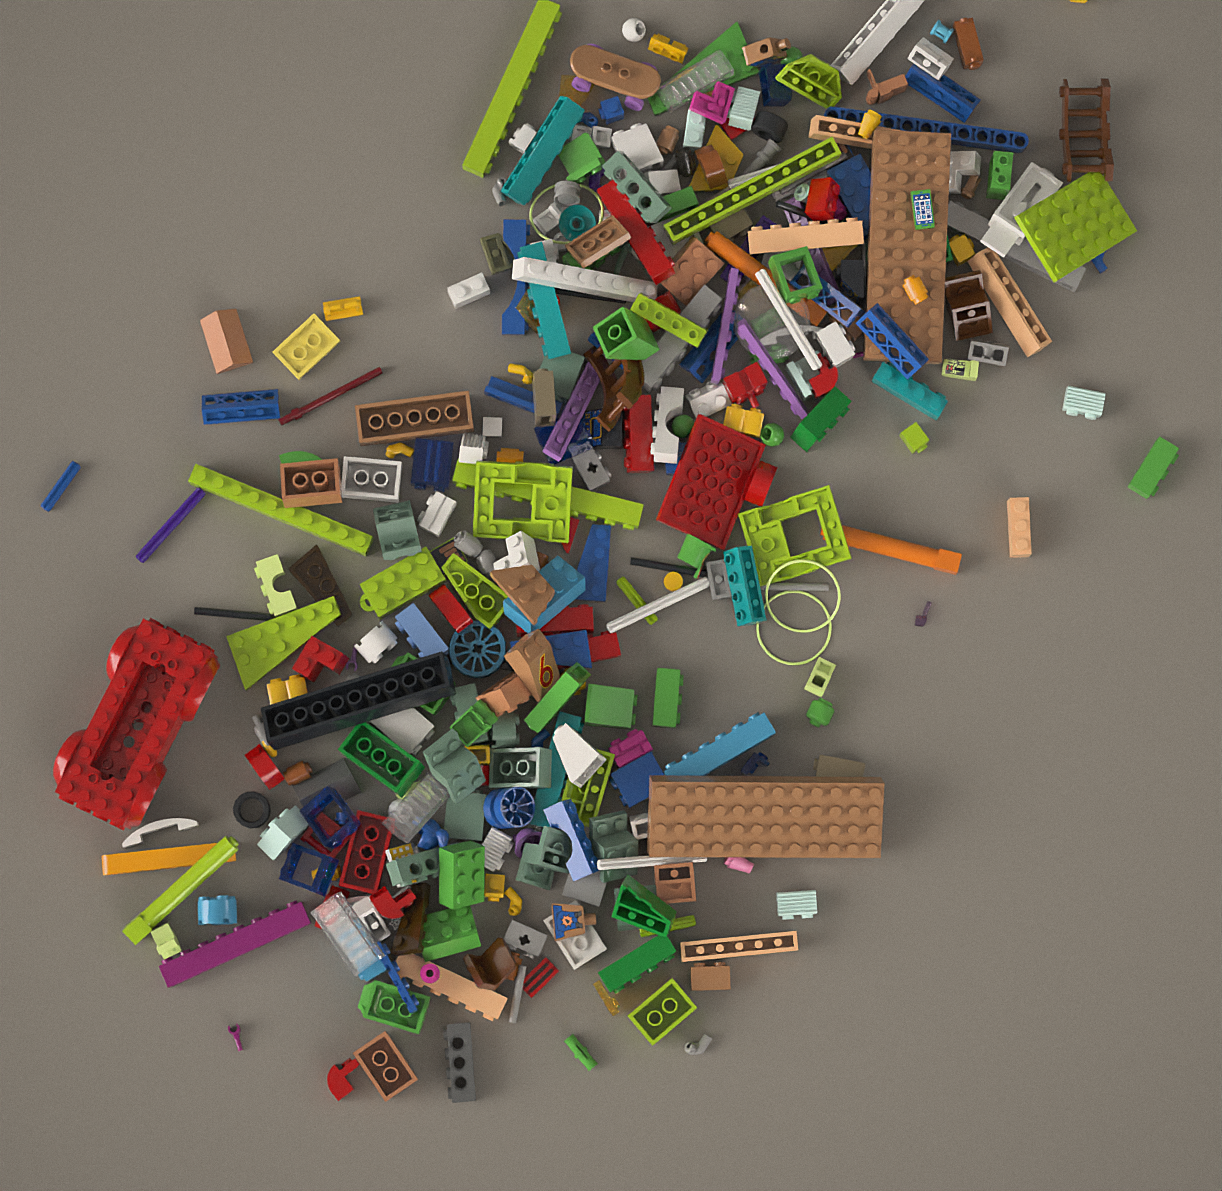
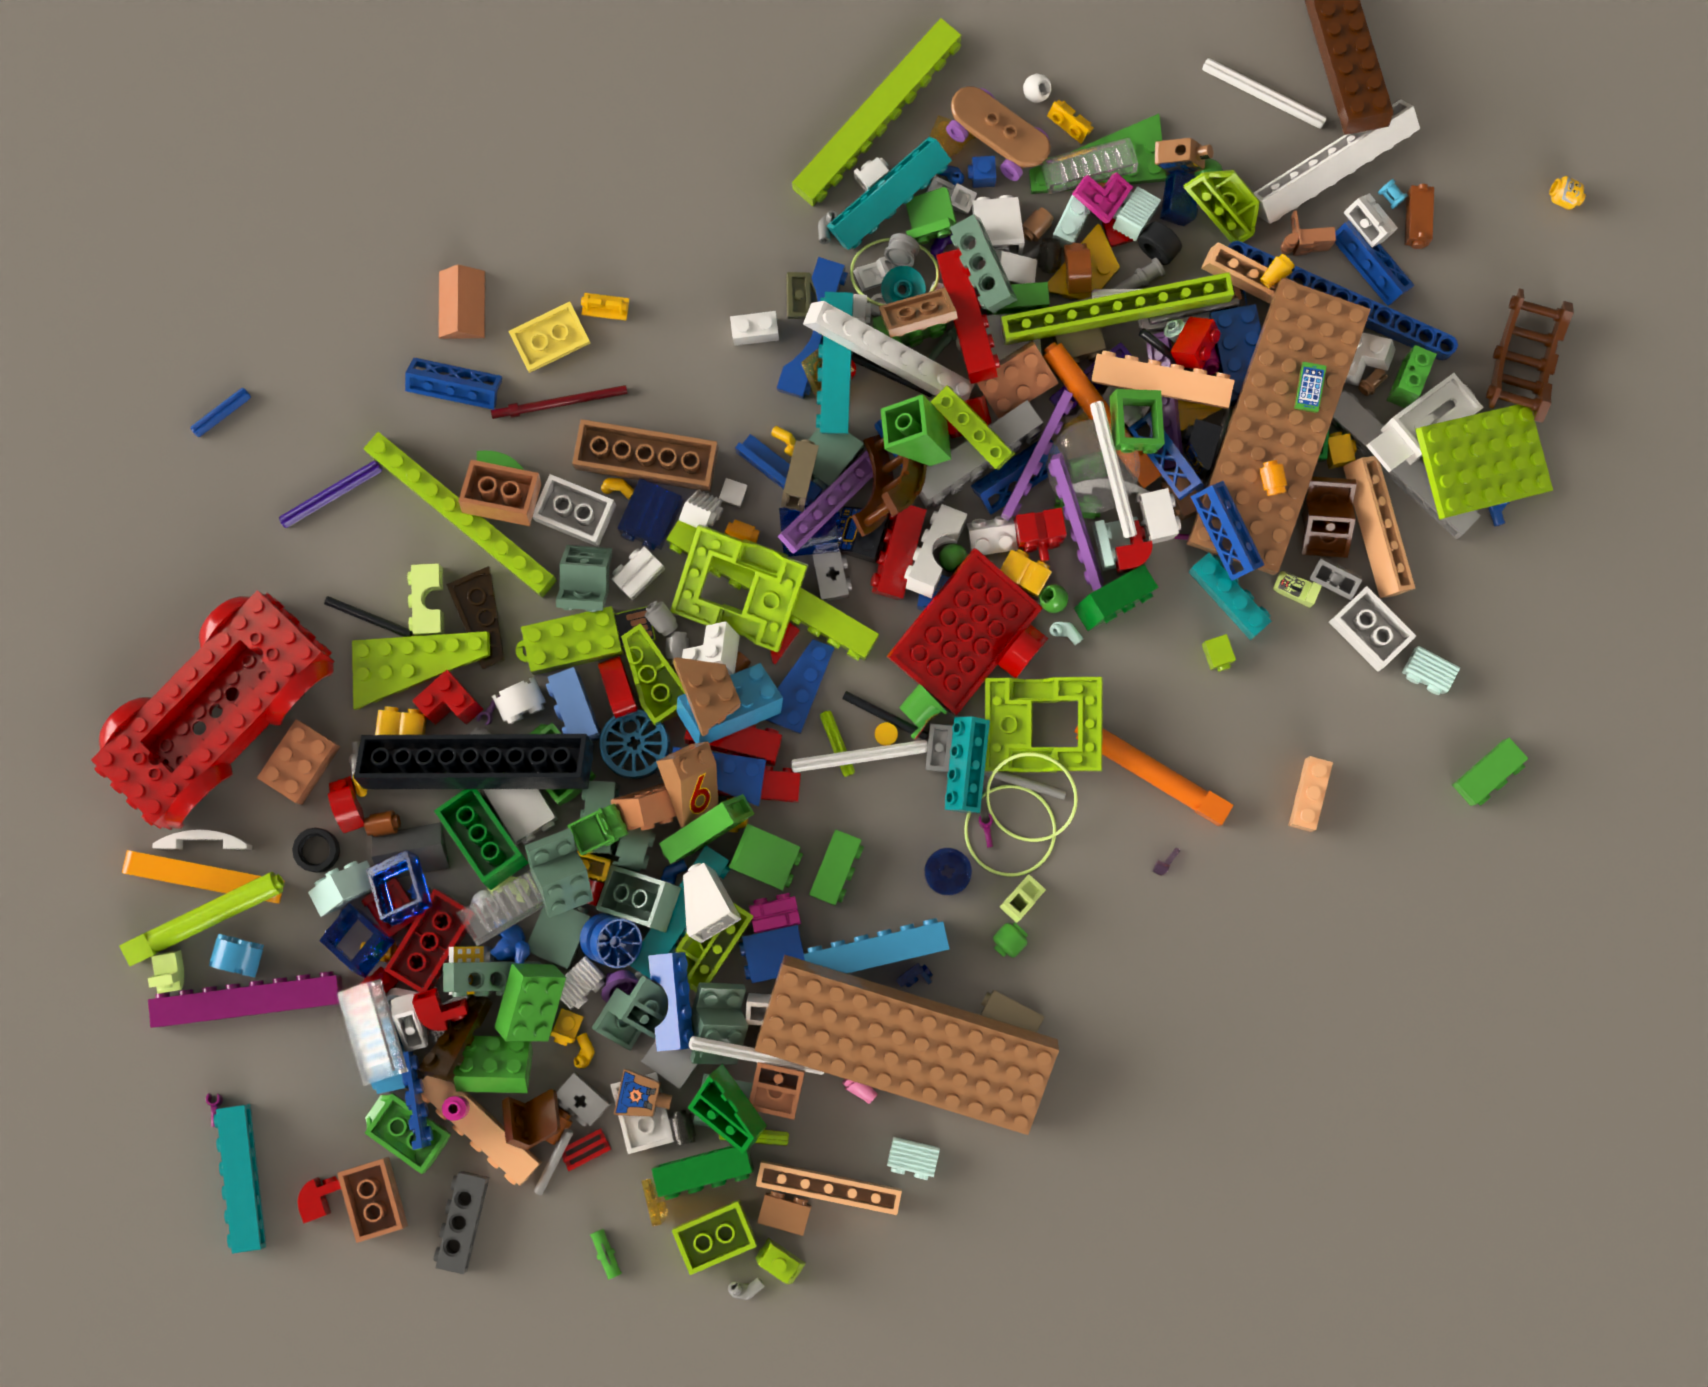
camera: 25 degrees right, 0 degrees up
(216, 744) = (298, 762): none -> nougat brick
(276, 1083) = (240, 1178): none -> teal brick
(610, 936) = (682, 1127): none -> clear smoke brick
(718, 1015) = (779, 1261): none -> lime torso
(753, 685) = (954, 860): none -> clear blue brick
(775, 632) = (987, 830): none -> magenta hand
(789, 456) = (1066, 629): none -> light aqua arm
(1028, 383) = (1372, 629): none -> white brick

